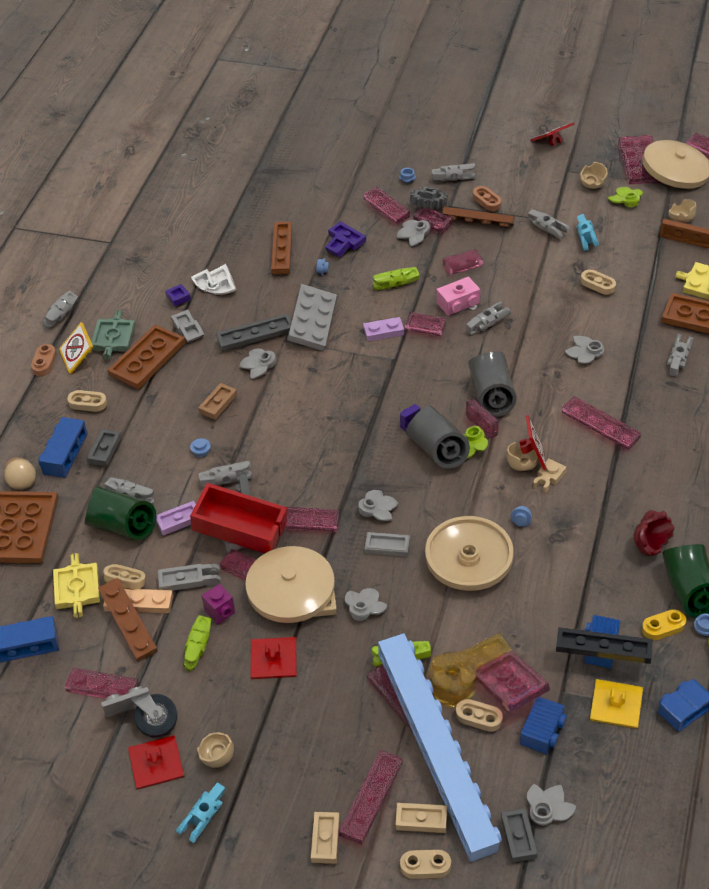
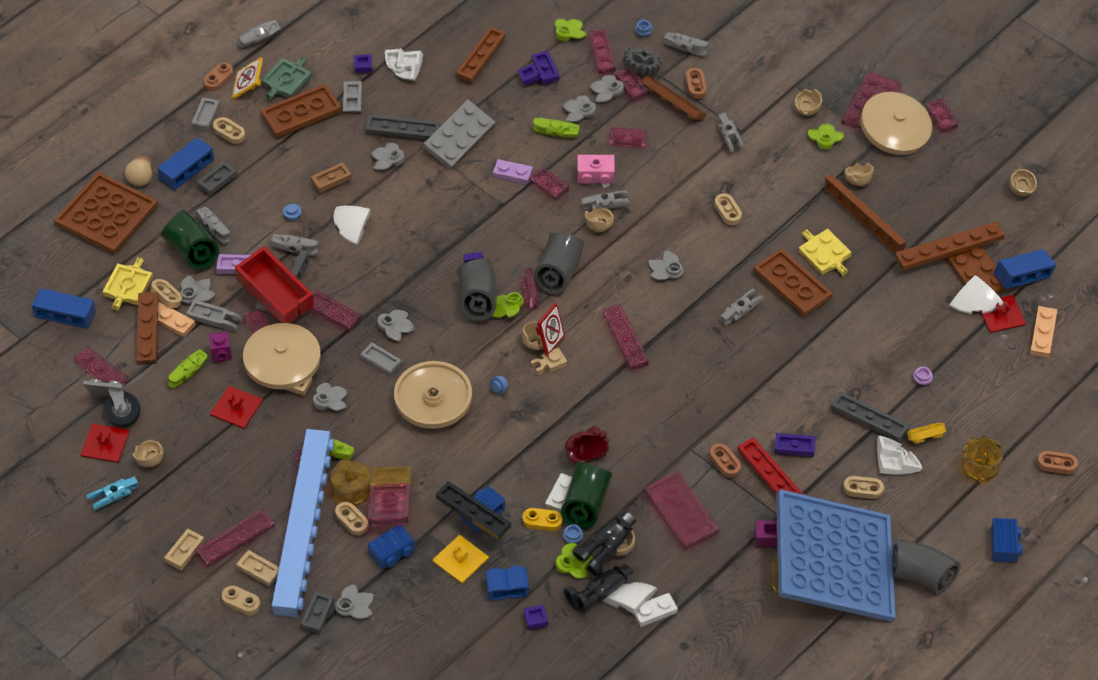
camera: 25 degrees right, 5 degrees up
(52, 396) = (205, 114): none -> light grey tile
(153, 560) = (196, 290): none -> light grey plate
(264, 431) = (351, 222): none -> white brick
(322, 266) = (502, 88): medium blue plate -> none
(343, 200) = (570, 29): none -> lime plate
(403, 255) = (579, 109): none -> light grey plate
(496, 335) = (599, 219): none -> tan hair
(553, 134) = (808, 40): red piece -> none
(586, 232) = (756, 156): medium azure hinge -> none
(661, 591) = (558, 493): none -> white plate

